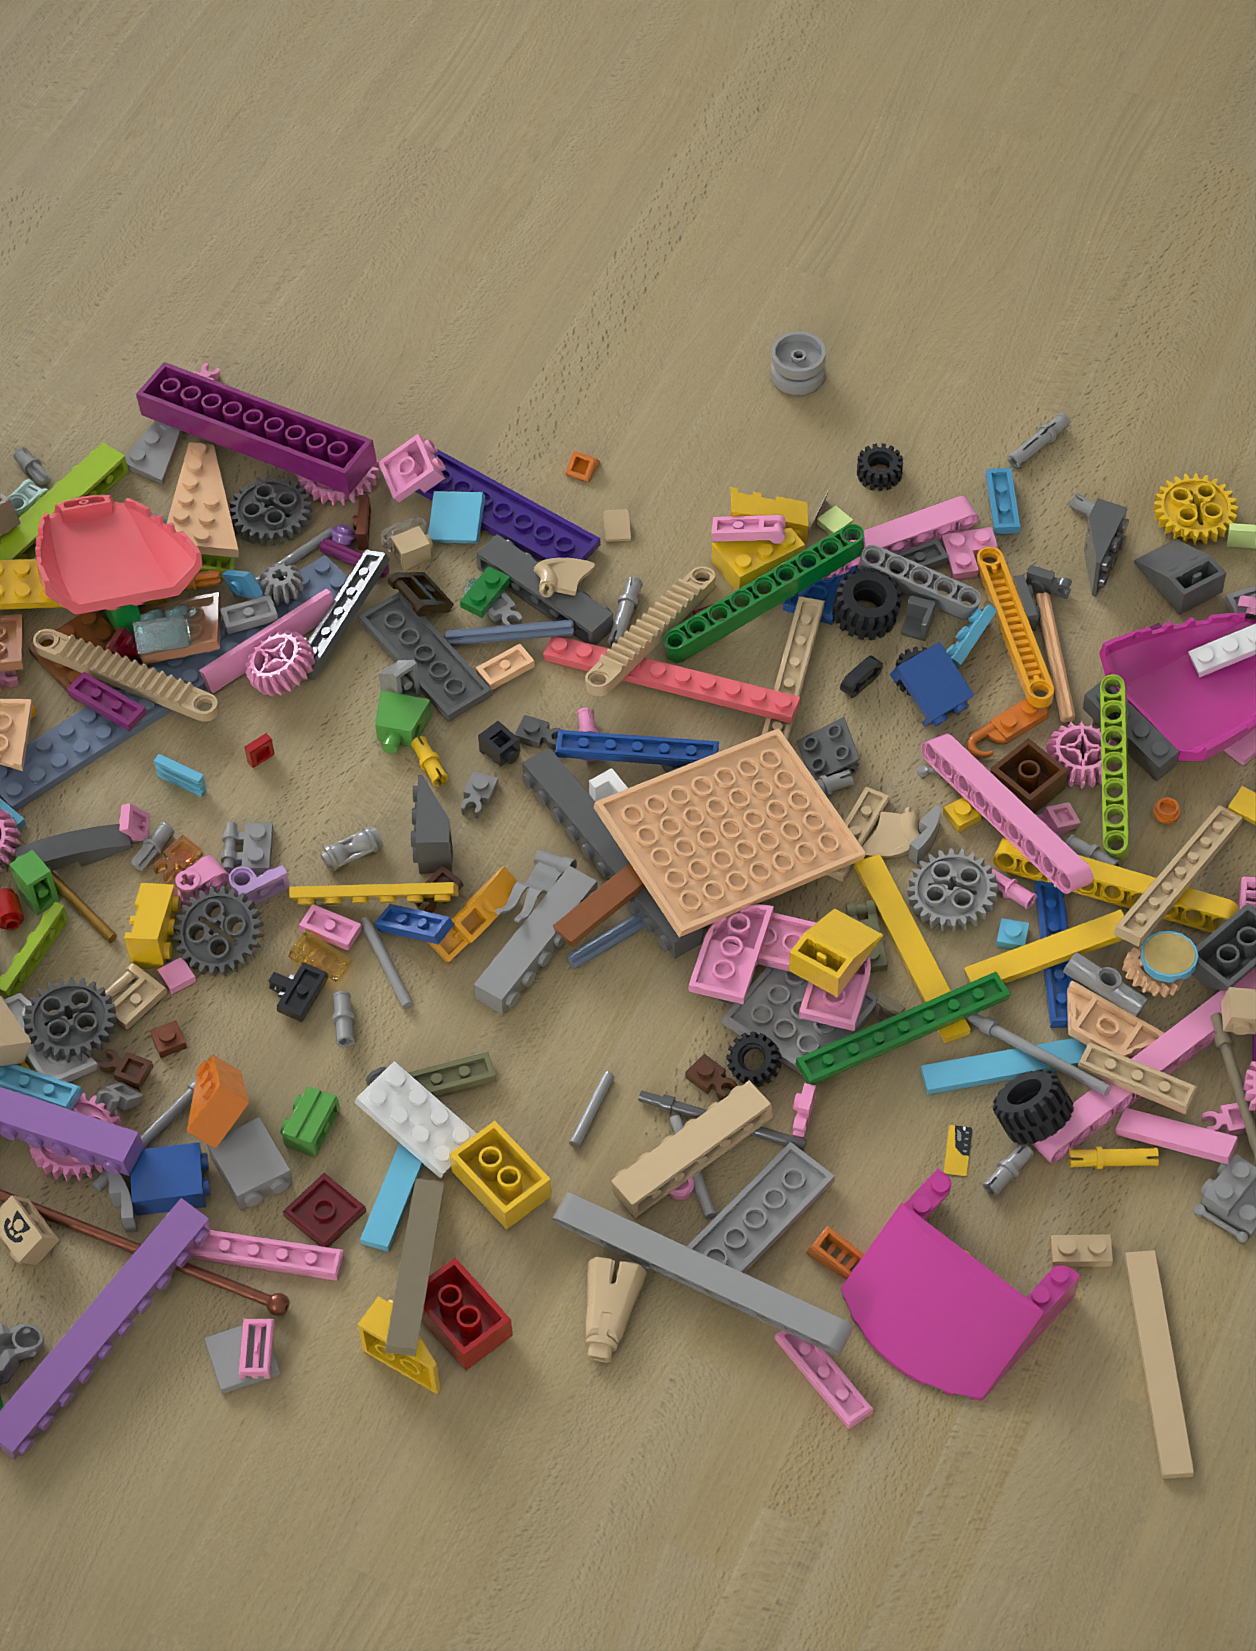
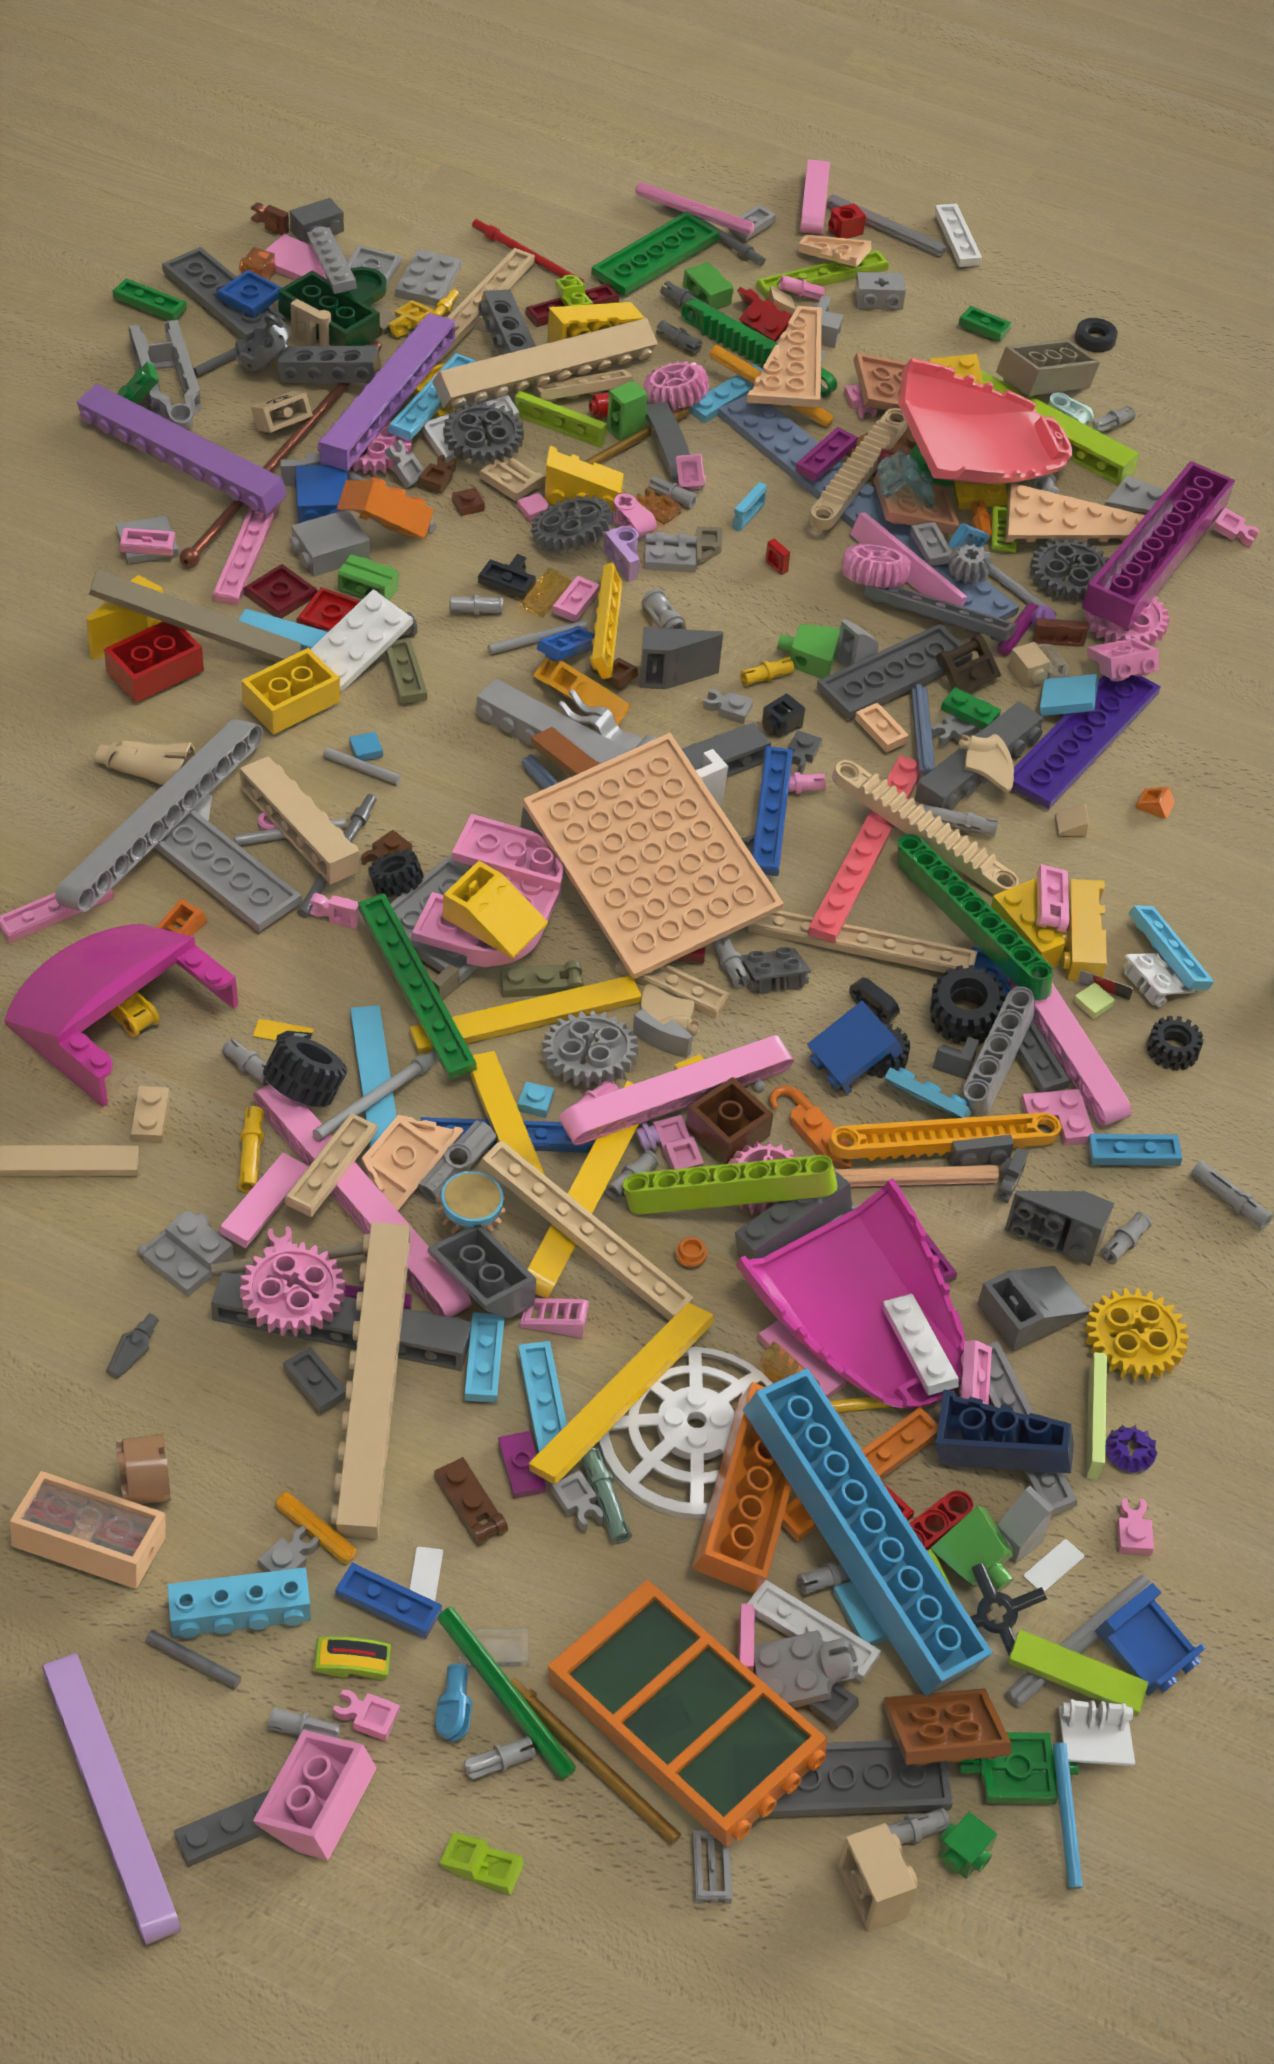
camera: 85 degrees right, 5 degrees down
(233, 812) = (708, 543): none -> dark tan slope
(359, 1157) = (326, 609): none -> red tile
(564, 1107) = (366, 746): none -> dark azure tile
(772, 461) = (1171, 947): none -> medium azure plate
(804, 475) = (1153, 977): none -> white hinge

